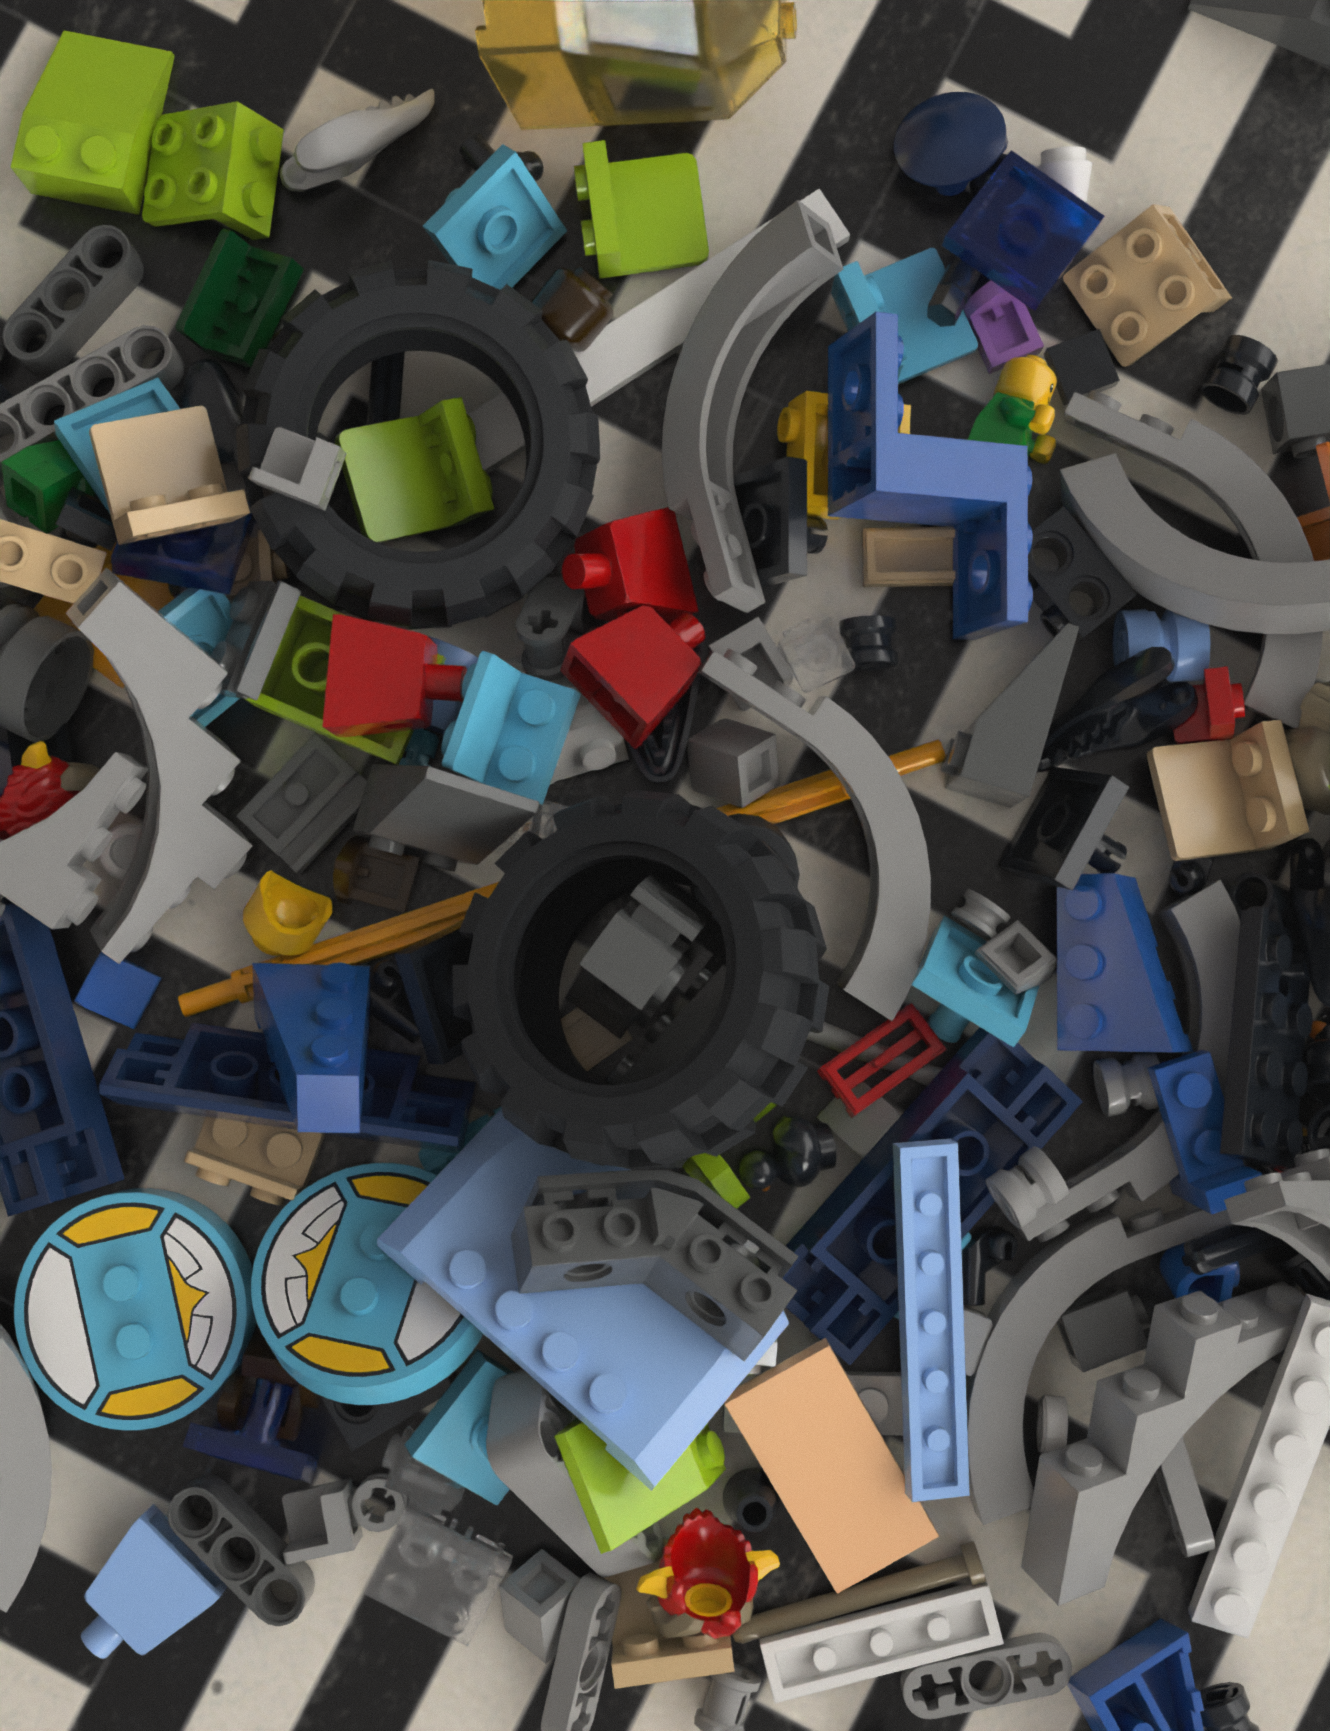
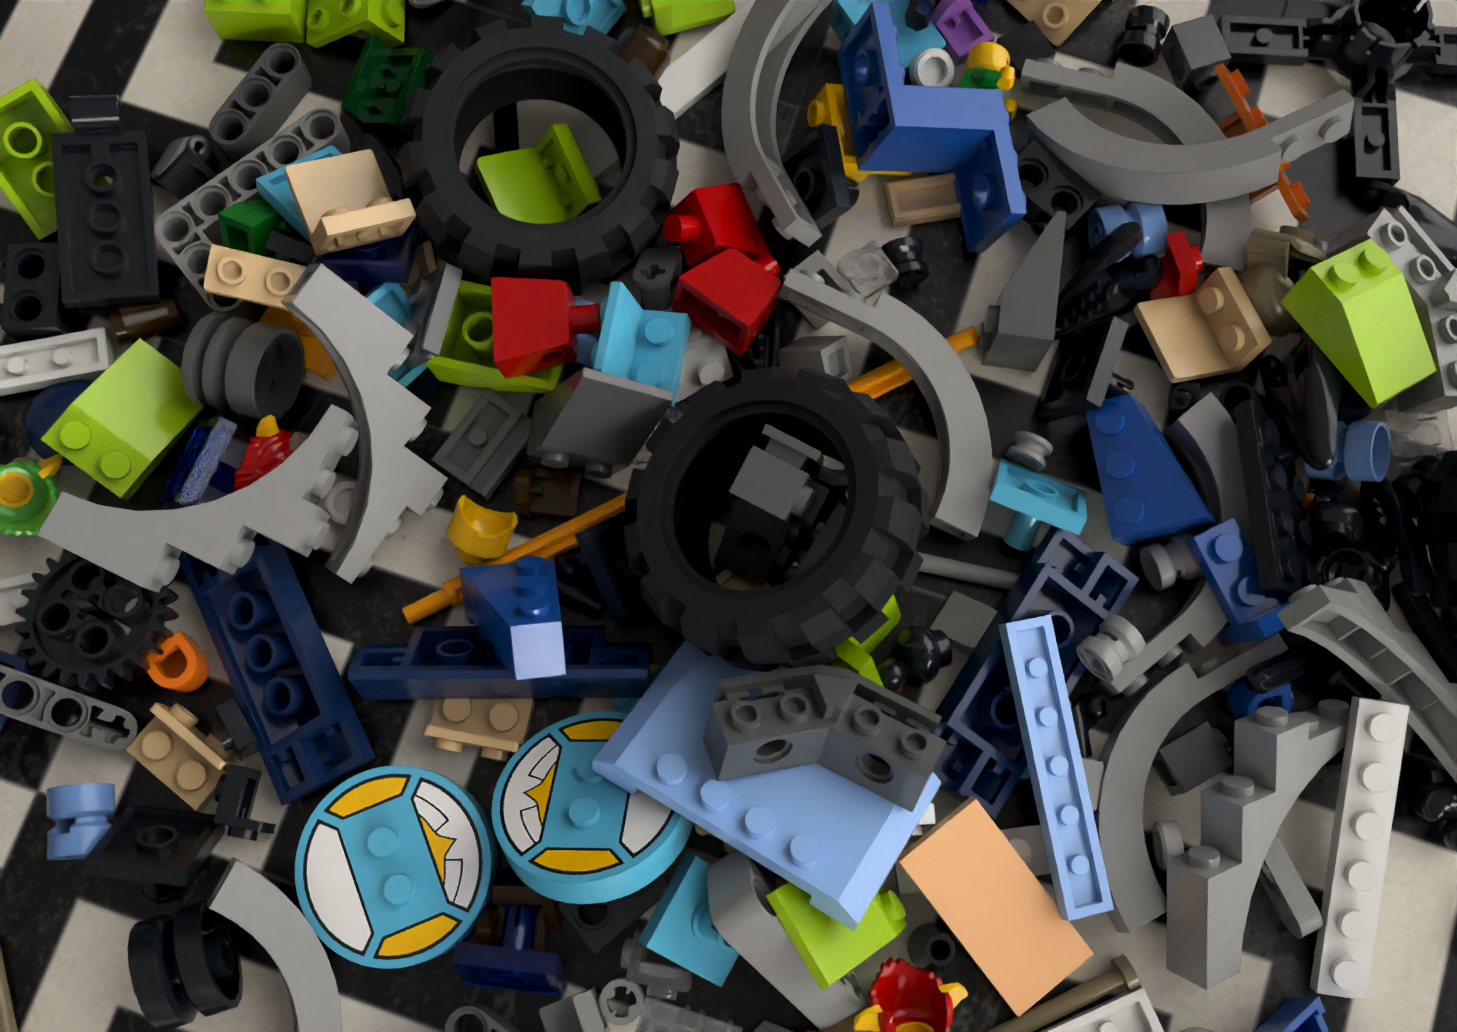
camera: 10 degrees left, 10 degrees down
(118, 990) = (352, 610): blue slope -> none
(300, 467) = (452, 166): light grey panel -> none
(842, 1088) = (948, 597): red tile -> none
(951, 381) = (931, 68): none -> white tile
(1018, 958) = (1066, 475): light grey slope -> none

